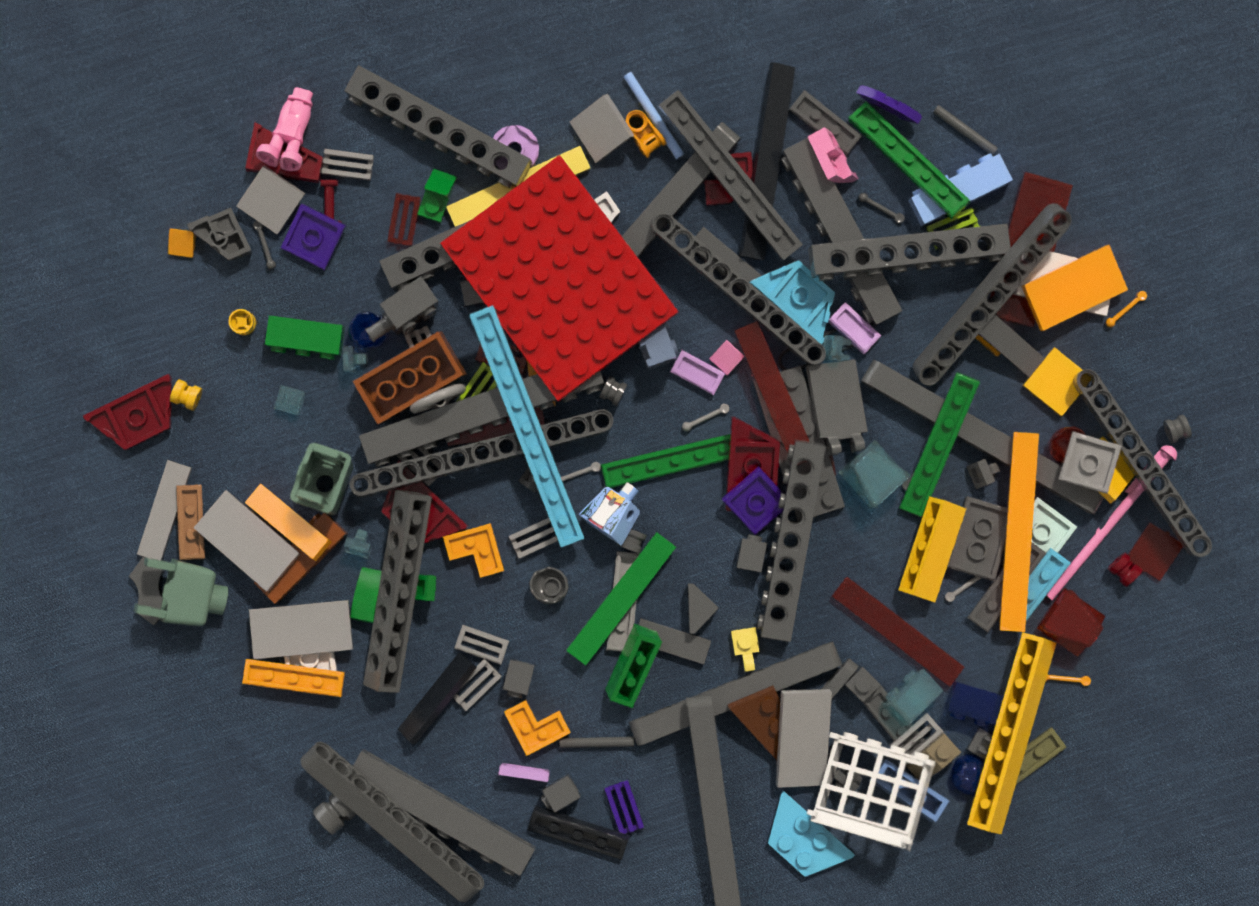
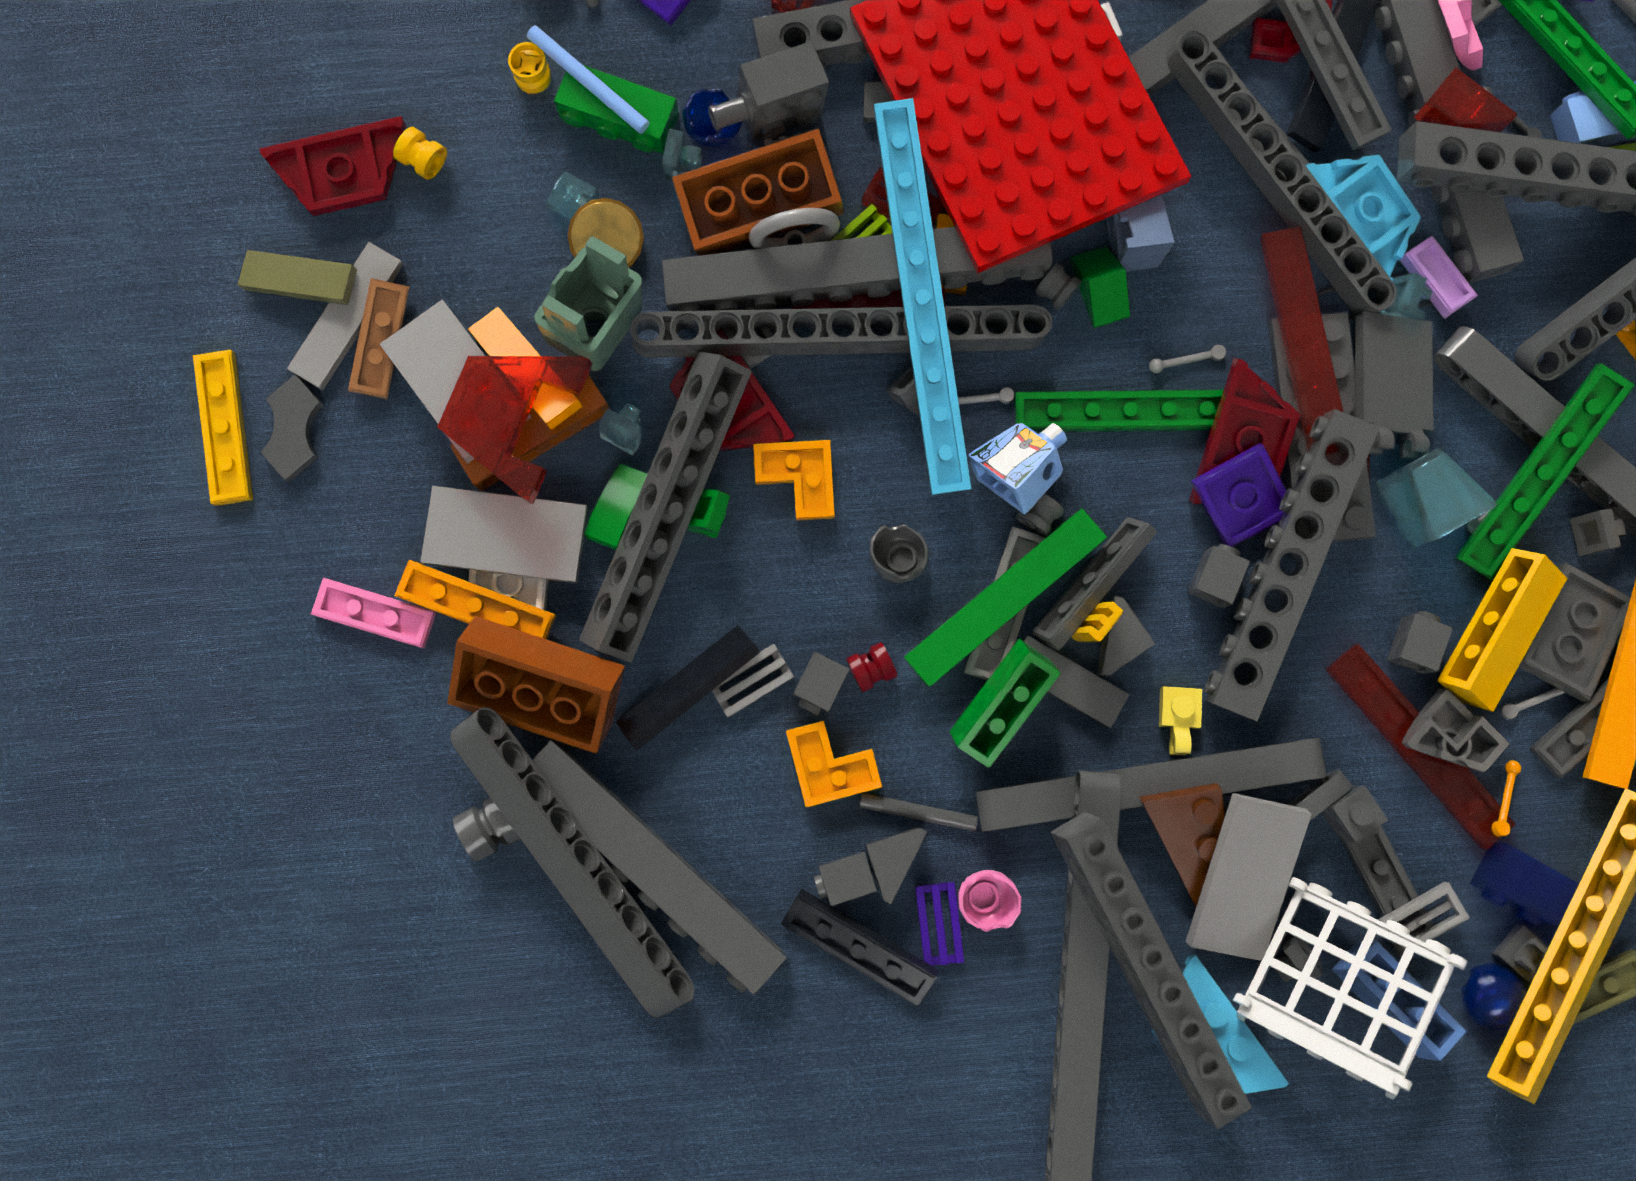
camera: 15 degrees right, 5 degrees down
(105, 600) = (223, 427): none -> yellow tile
(128, 493) = (297, 277): none -> olive tile
(187, 594) = (341, 437): sand green piece -> none
(230, 695) = (373, 613): none -> bright pink tile
(276, 556) = (493, 405): none -> clear red wing
(283, 327) = (588, 79): none -> light blue bar
(318, 422) = (609, 222): none -> pearl gold tile
(344, 719) = (535, 684): none -> dark orange brick
(462, 637) = (802, 639): light grey tile -> none
(517, 545) = (889, 464): light grey tile -> none
(524, 772) = (796, 832): lavender tile -> none
(548, 660) = (871, 667): none -> dark red wheel
(586, 774) = (892, 859): none -> dark grey slope
(640, 382) = (1102, 286): none -> green slope
(650, 786) = (989, 900): none -> bright pink hair
(674, 576) = (1093, 582): none -> dark grey tile
(678, 603) = (1103, 618): none -> yellow tile
(697, 372) = (1188, 290): lavender tile -> none
(726, 357) = (1239, 276): bright pink slope -> none
(751, 807) = (1151, 969): none -> dark grey brick
(841, 224) = (1466, 105): none -> clear red slope
(884, 567) = (1420, 642): none -> dark grey brick
(912, 697) = (1430, 852): clear light blue brick -> none
(914, 621) = (1454, 734): none -> dark grey slope
(941, 751) = (1464, 941): dark tan slope -> none
(954, 672) = (1501, 827): none -> light orange hinge

